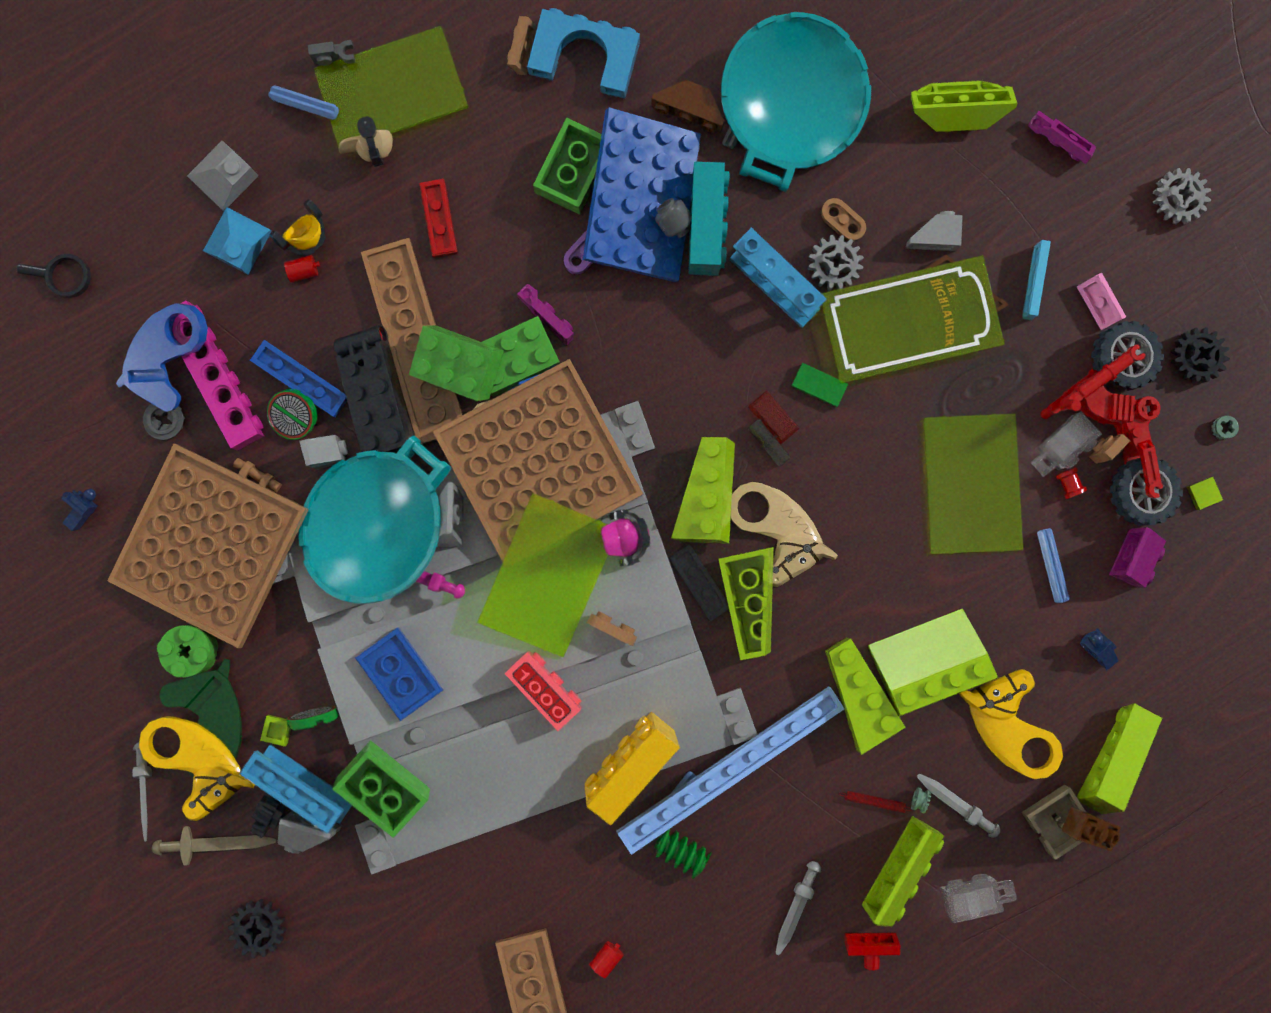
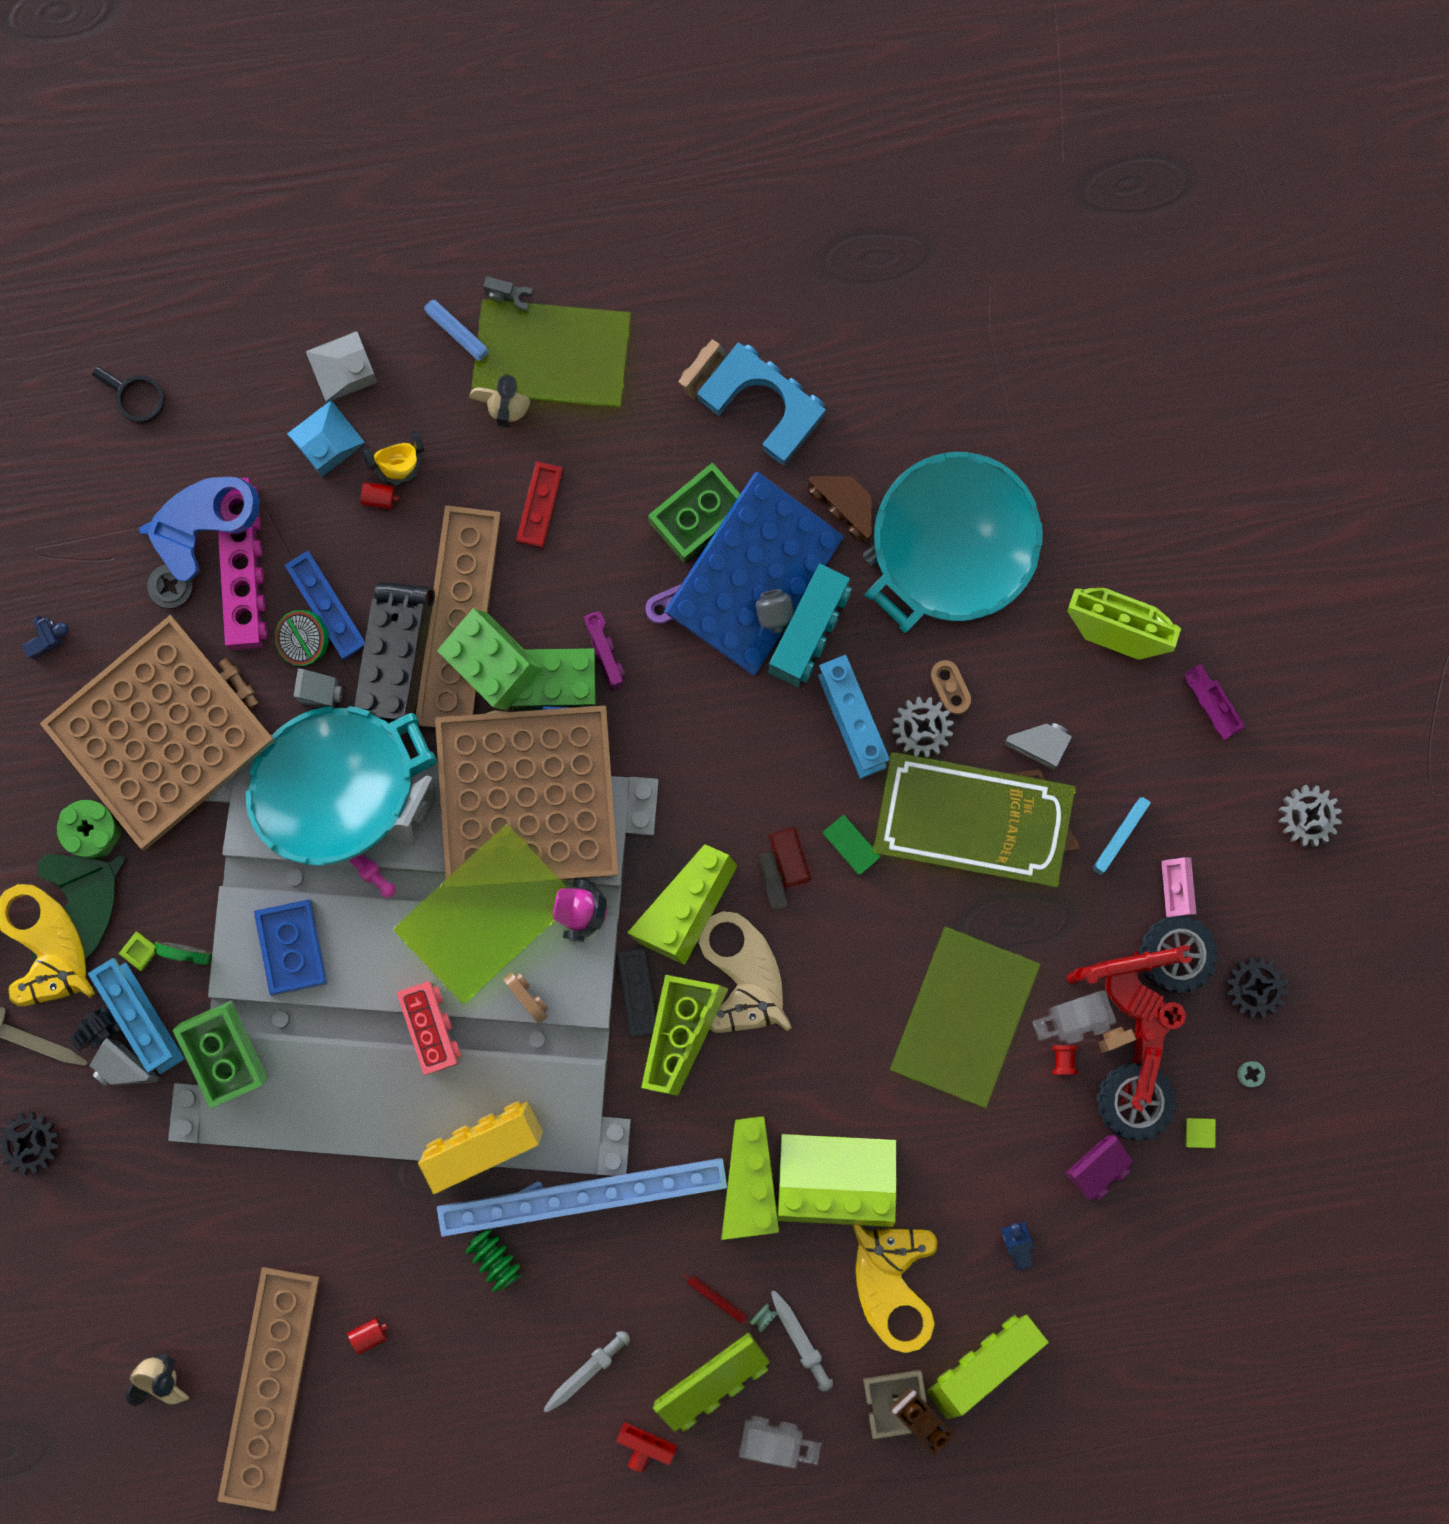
camera: 20 degrees right, 5 degrees down
(1053, 565) = (1009, 1137): medium blue axle -> none

